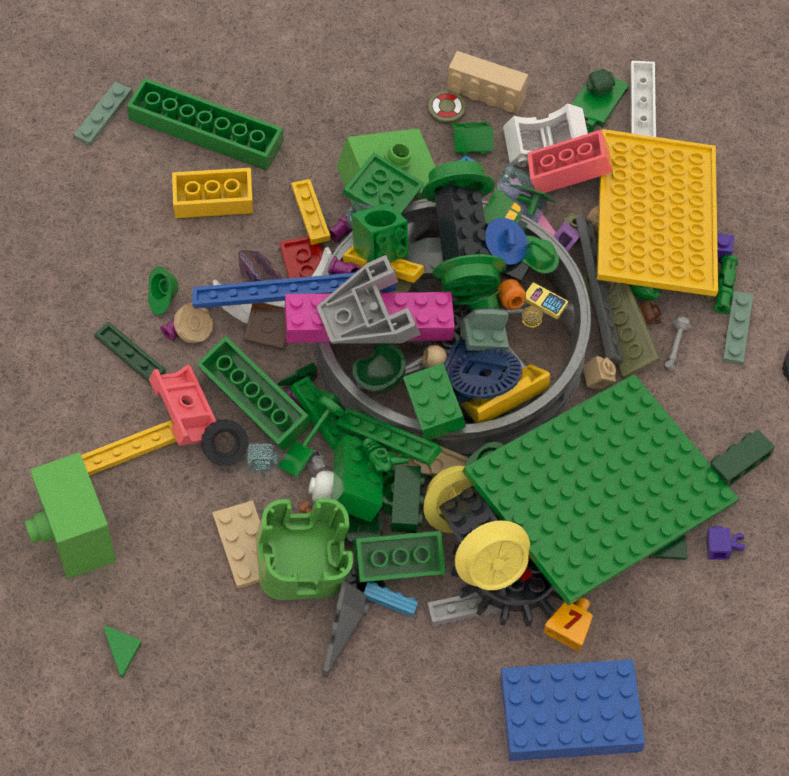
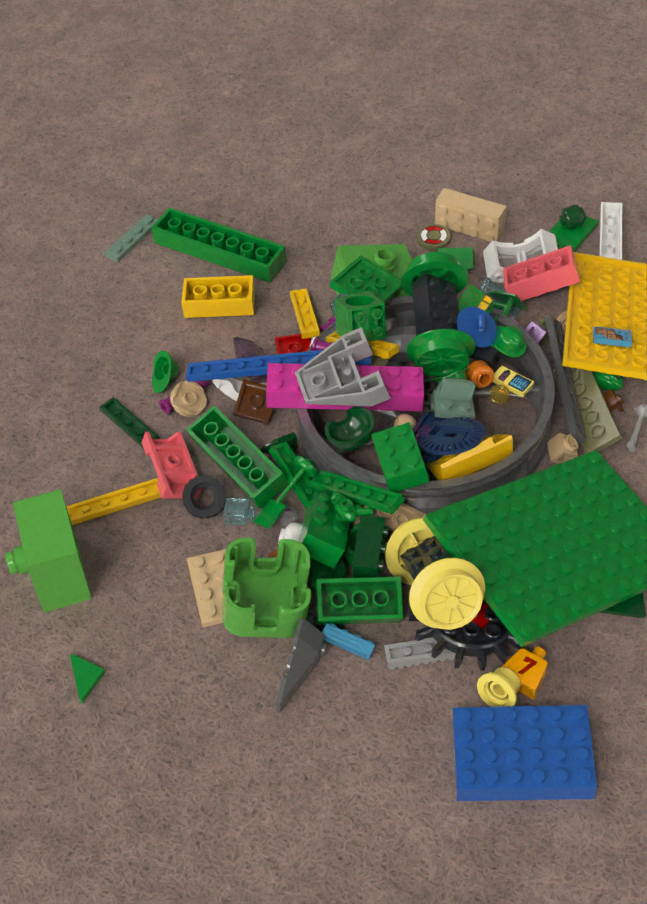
camera: 10 degrees right, 10 degrees down
(546, 644) = (499, 687): none -> light yellow piece
(648, 242) = (612, 336): none -> dark azure tile

